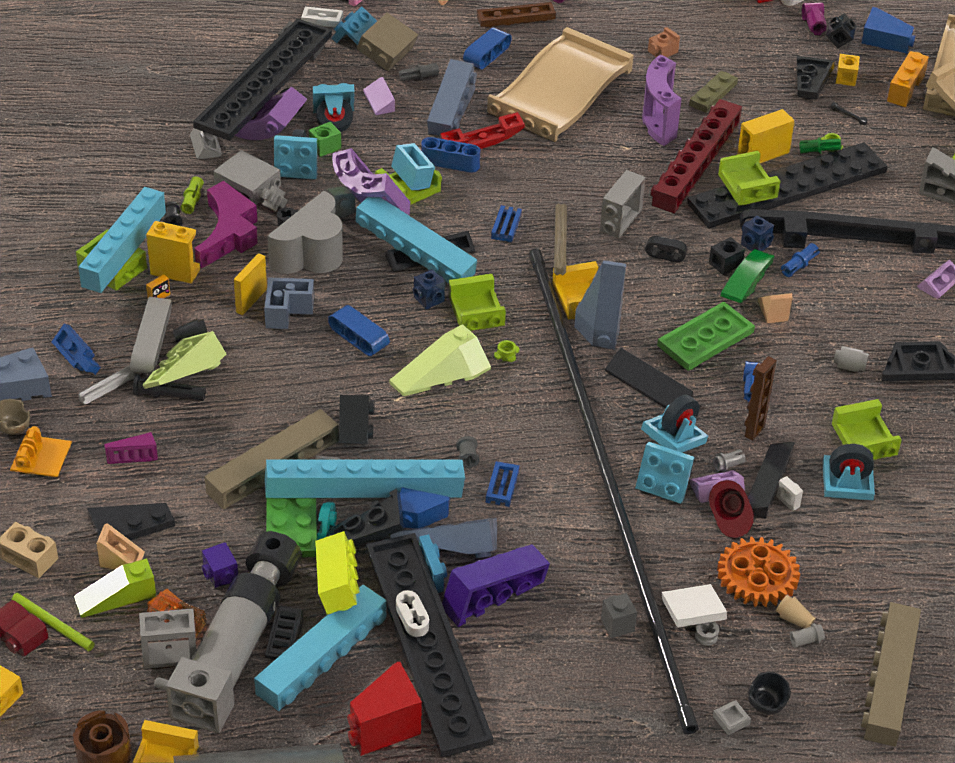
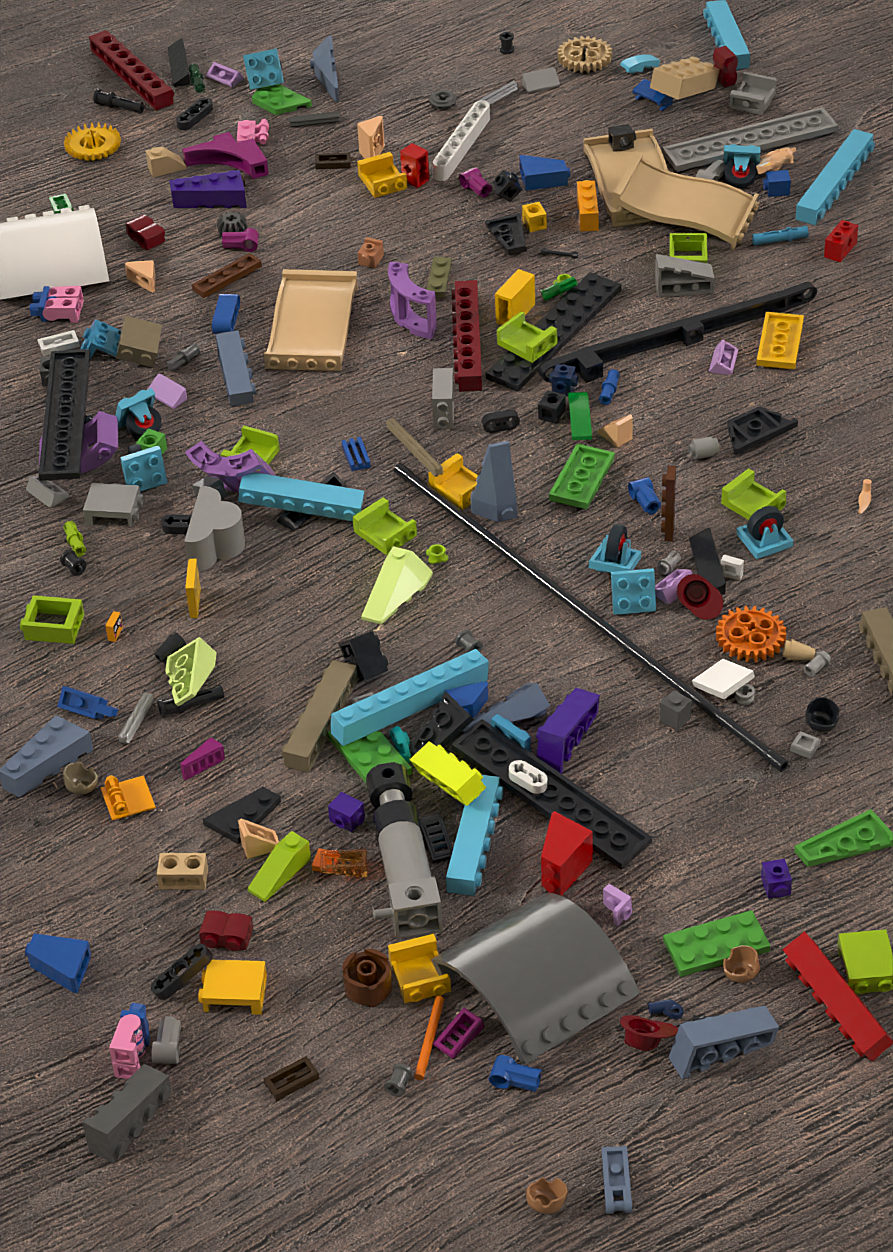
camera: 25 degrees left, 0 degrees up
(54, 622) = (255, 914): lime bar -> none
(121, 240) = (60, 597): medium azure brick -> none
(150, 335) = (142, 664): light grey beam -> none
(154, 628) = (367, 878): light grey window -> none
(172, 252) = (108, 589): yellow panel -> none
(234, 226) = (131, 544): magenta arch -> none
(273, 198) = (150, 512): light grey gear -> none
(287, 297) = (231, 587): sand blue brick -> none
(358, 330) = (307, 588): blue beam -> none
(413, 166) = (250, 435): medium azure piece -> none
(429, 289) = (339, 531): dark blue brick -> none
(451, 154) = (268, 415): blue beam -> none
(485, 137) = (283, 389): red slope -> none
(498, 498) = (516, 667): blue tile -> none
(645, 378) = (564, 529): black slope -> none

